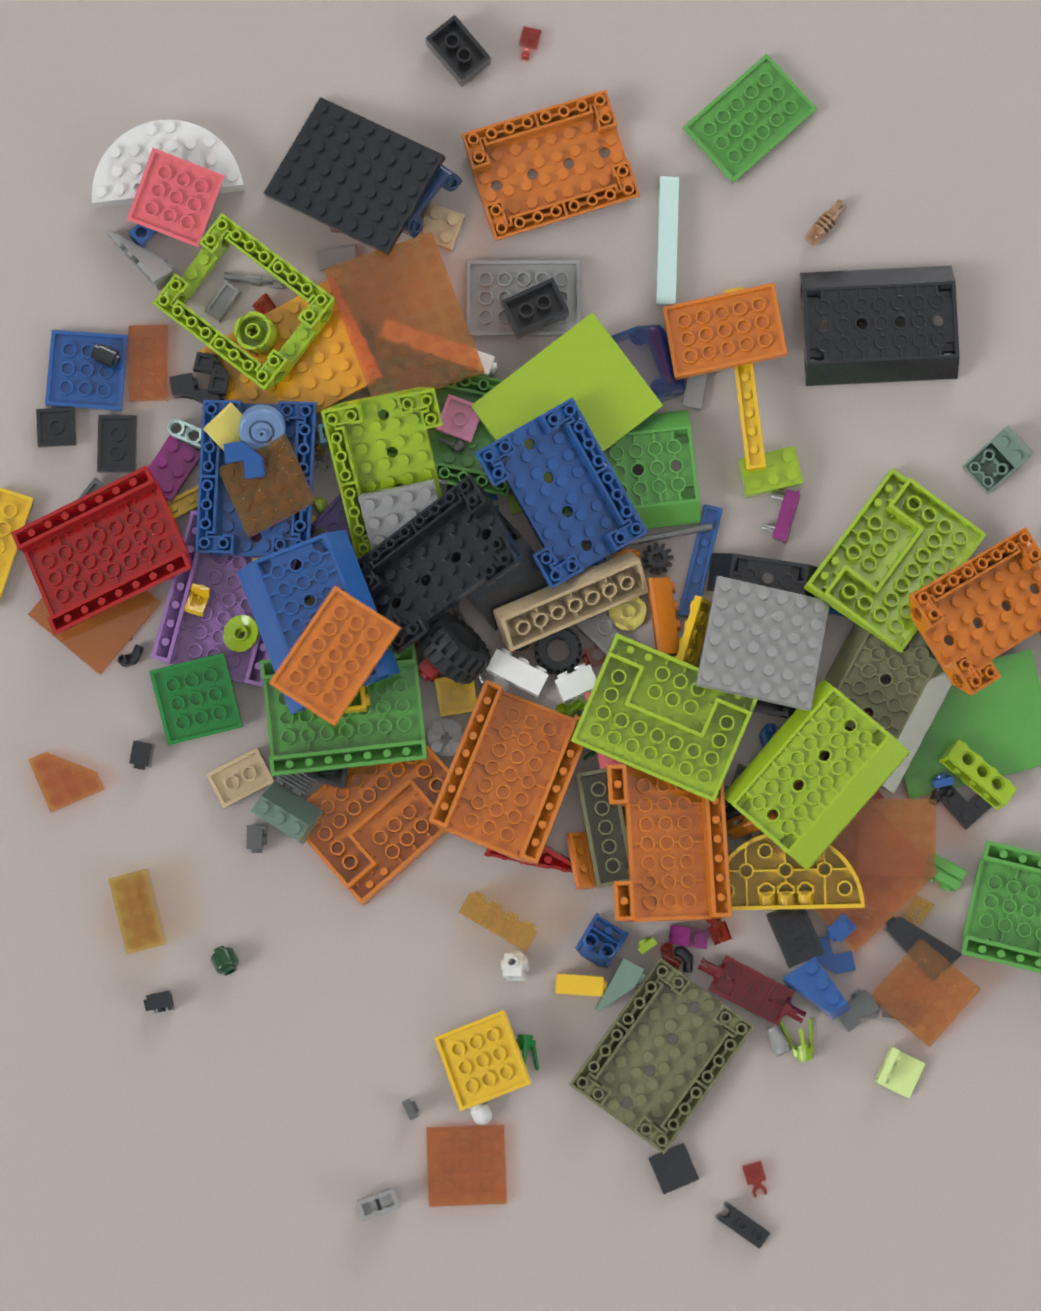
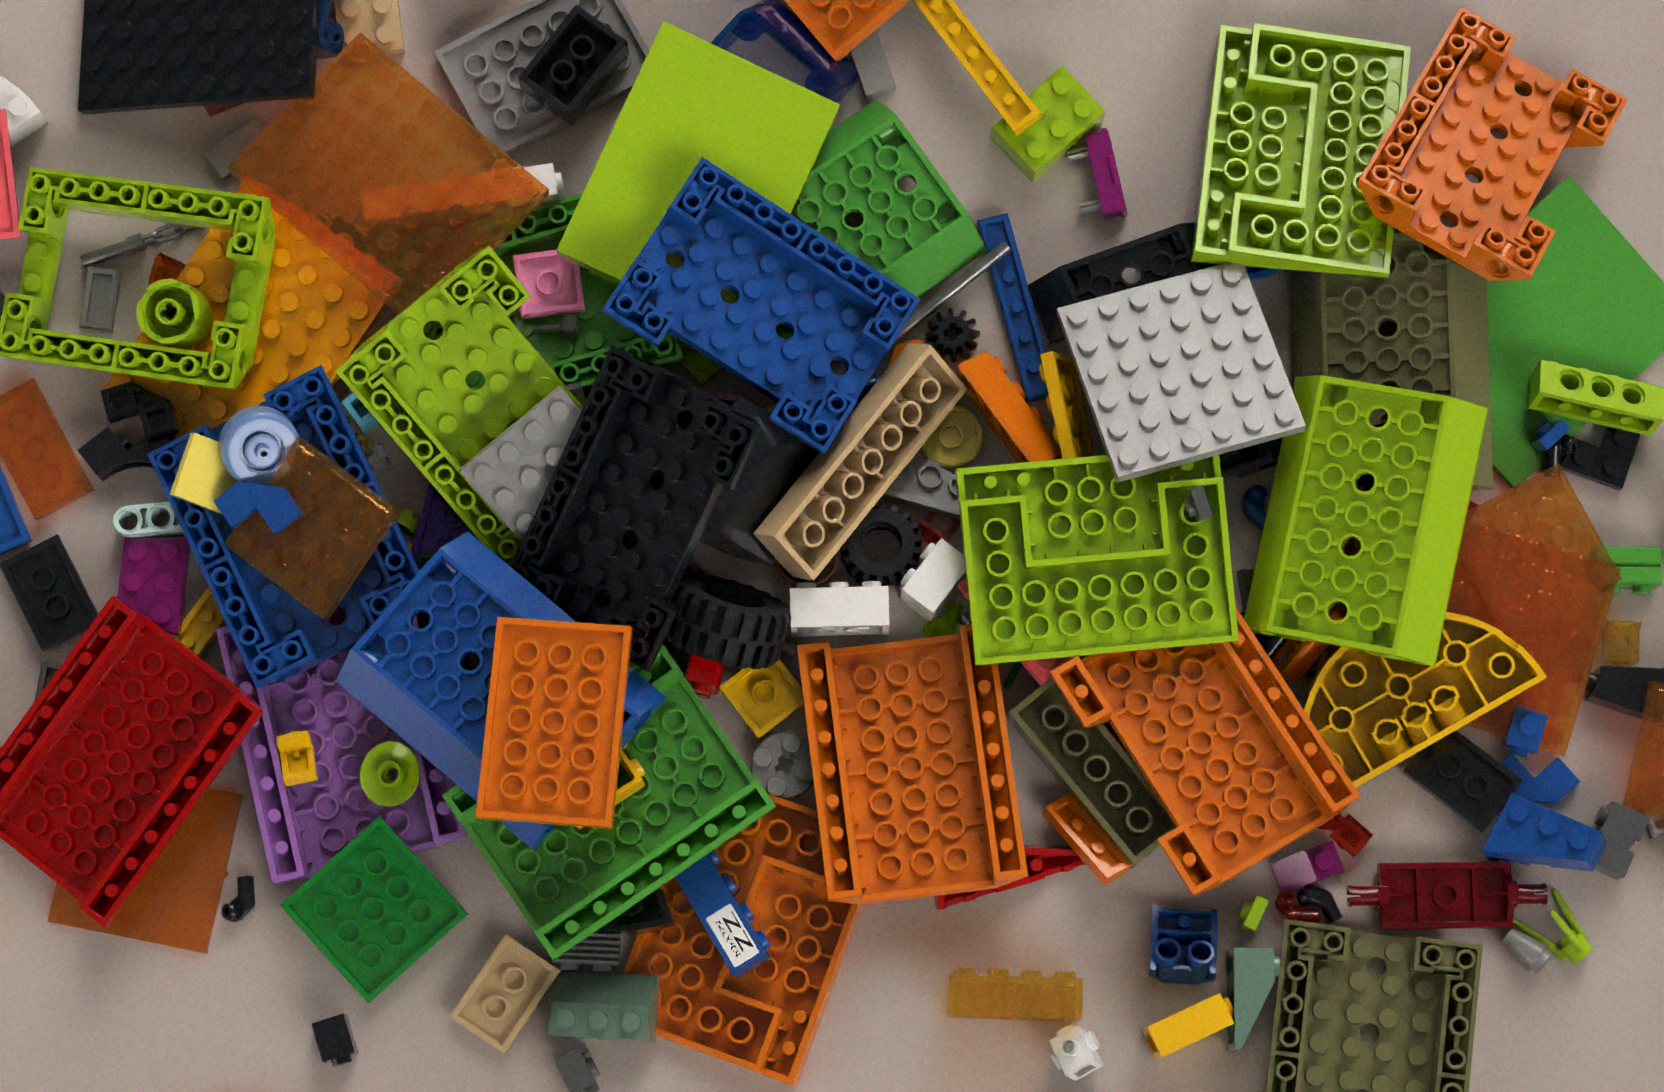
camera: 30 degrees left, 5 degrees down
(372, 799) = (723, 915): none -> blue brick
(730, 719) = (1197, 504): none -> dark grey plate

